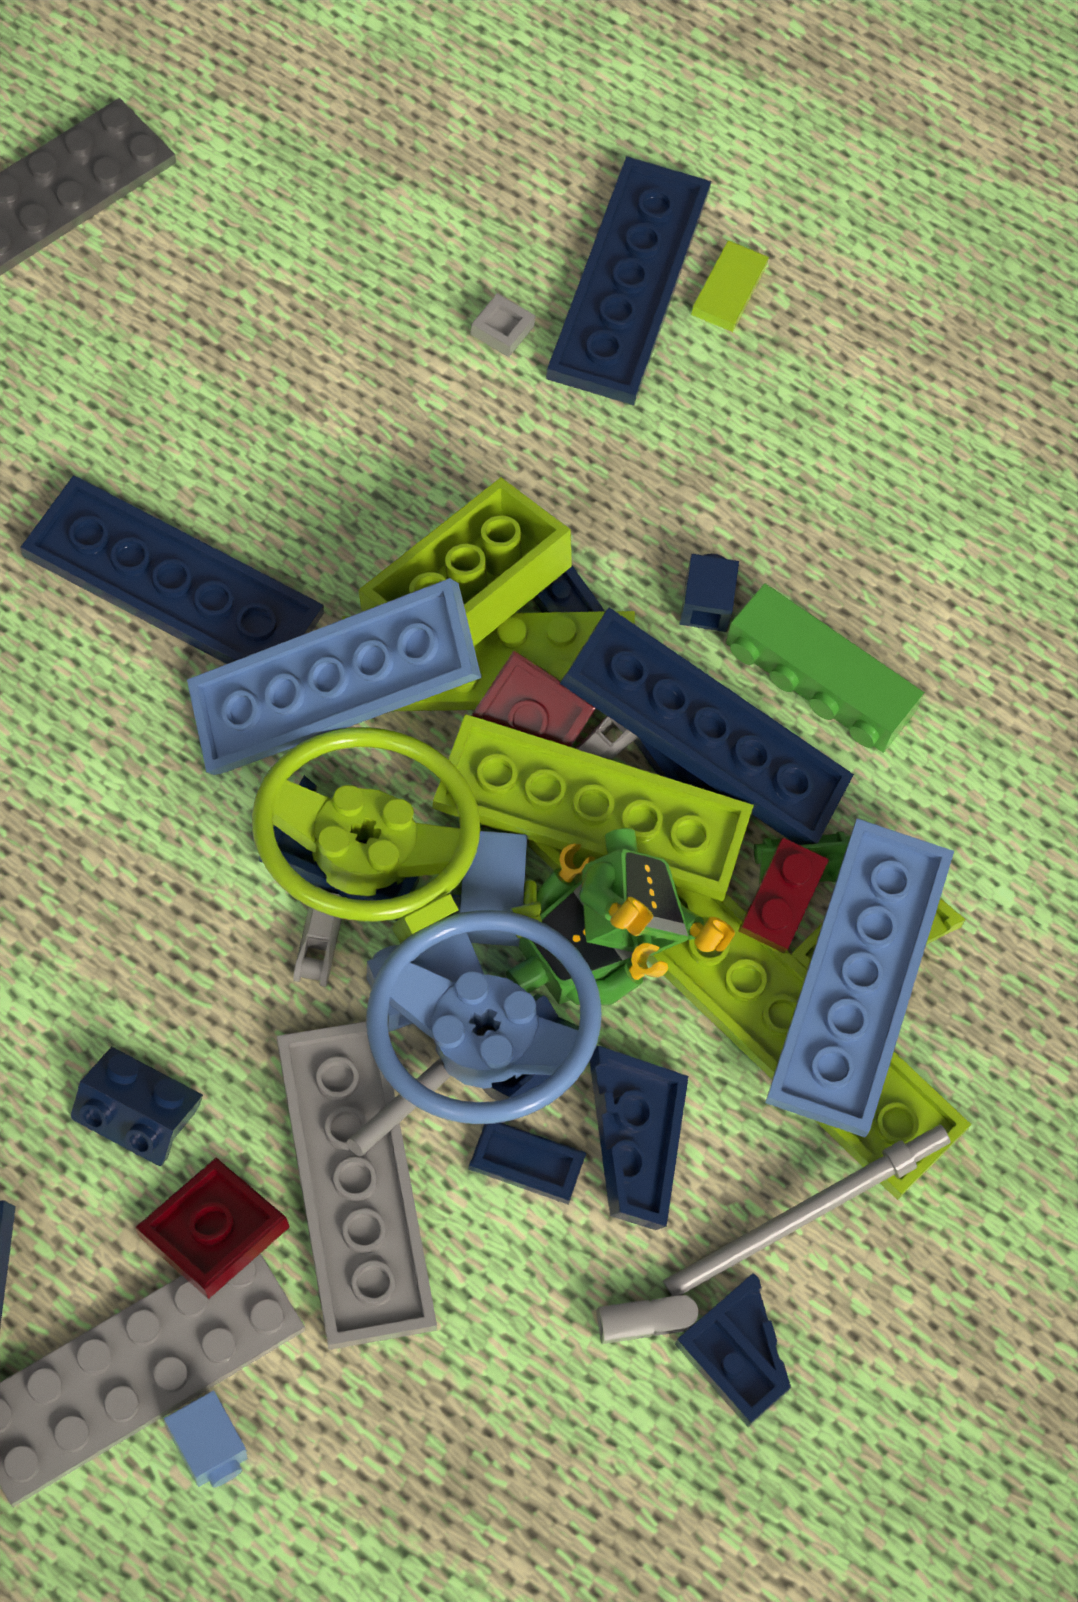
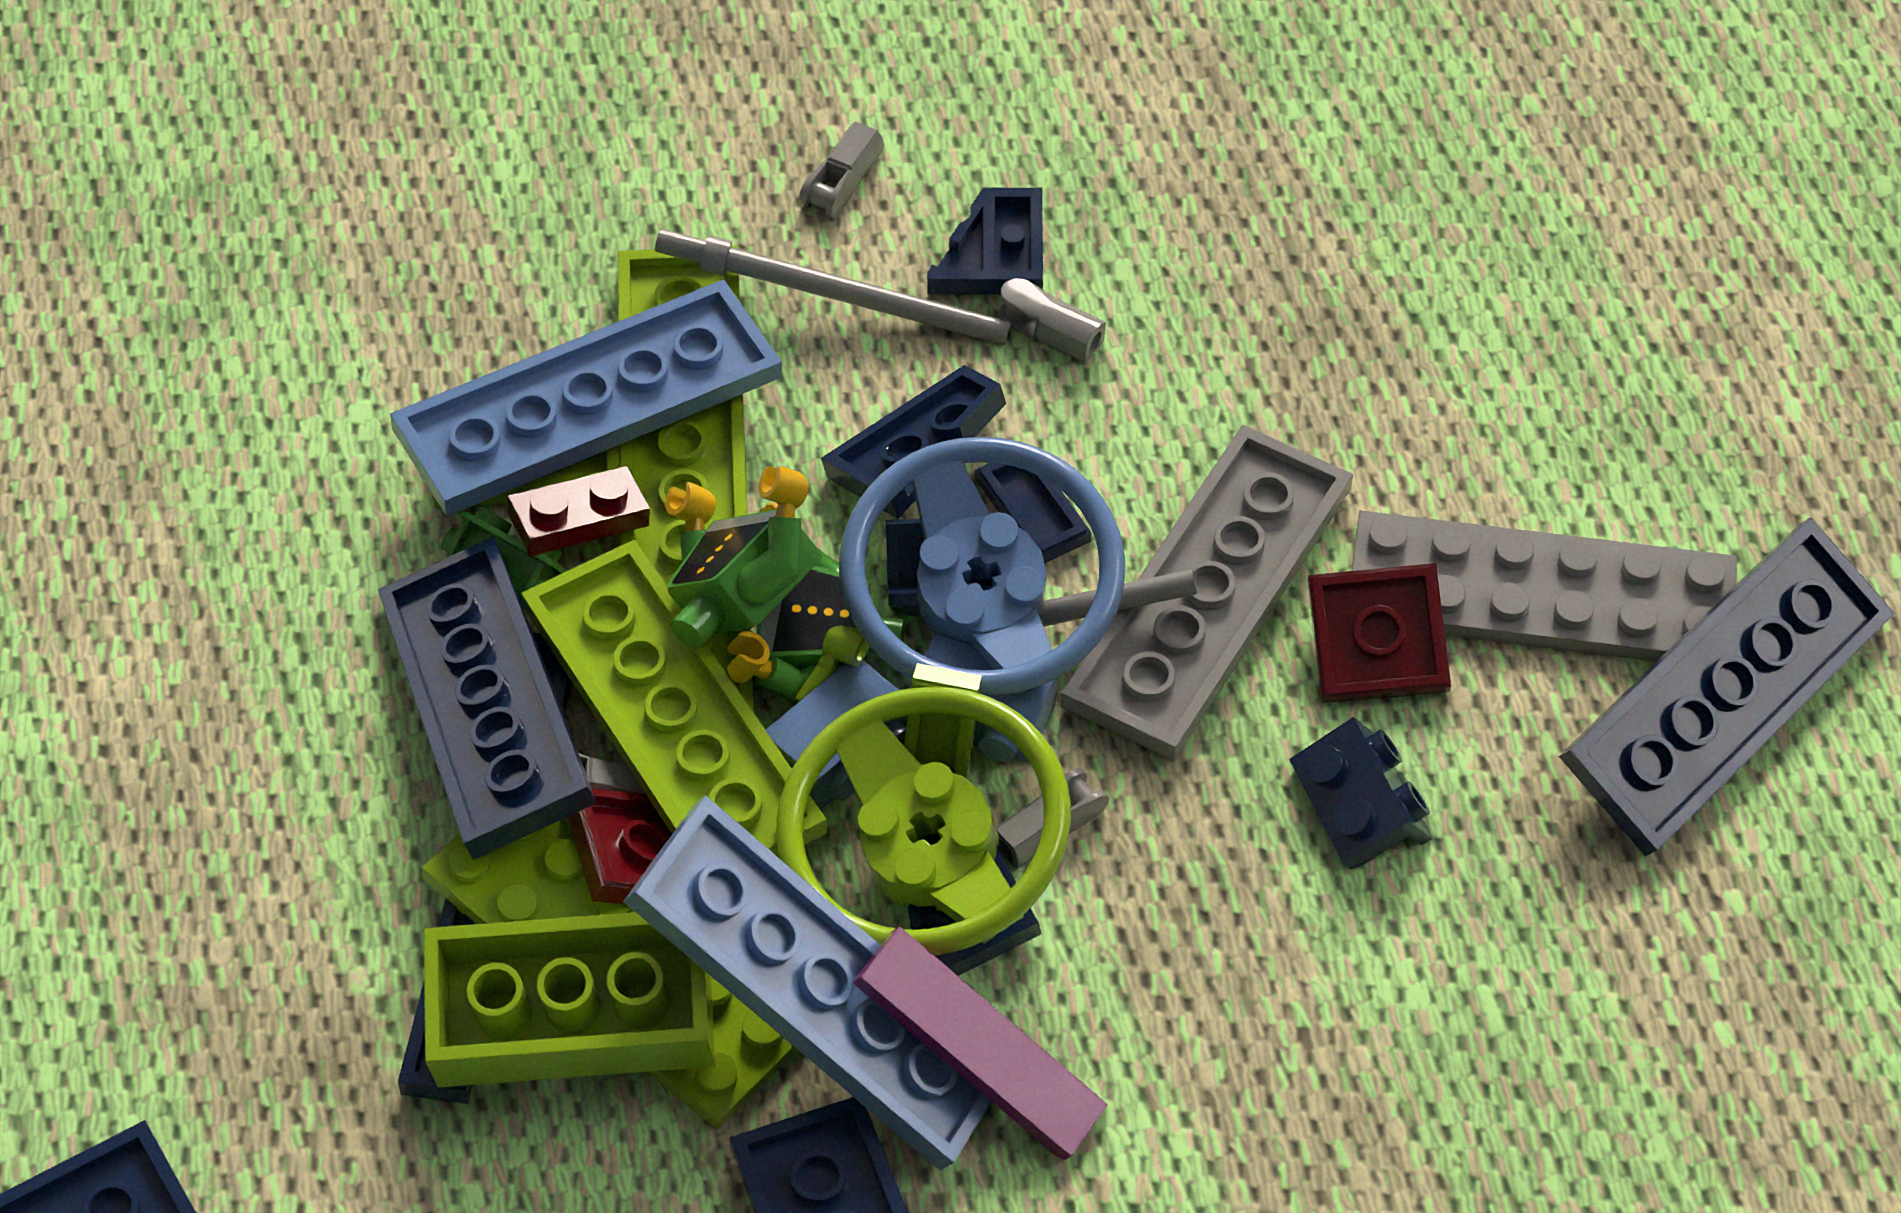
camera: 130 degrees left, 10 degrees down
(207, 1441) = (1523, 481): medium blue brick -> none
(223, 737) = (980, 1043): none -> tile
(709, 592) = (313, 853): dark blue brick -> none
(823, 668) = (291, 699): bright green brick -> none
(905, 1337) = (844, 167): none -> light grey bar

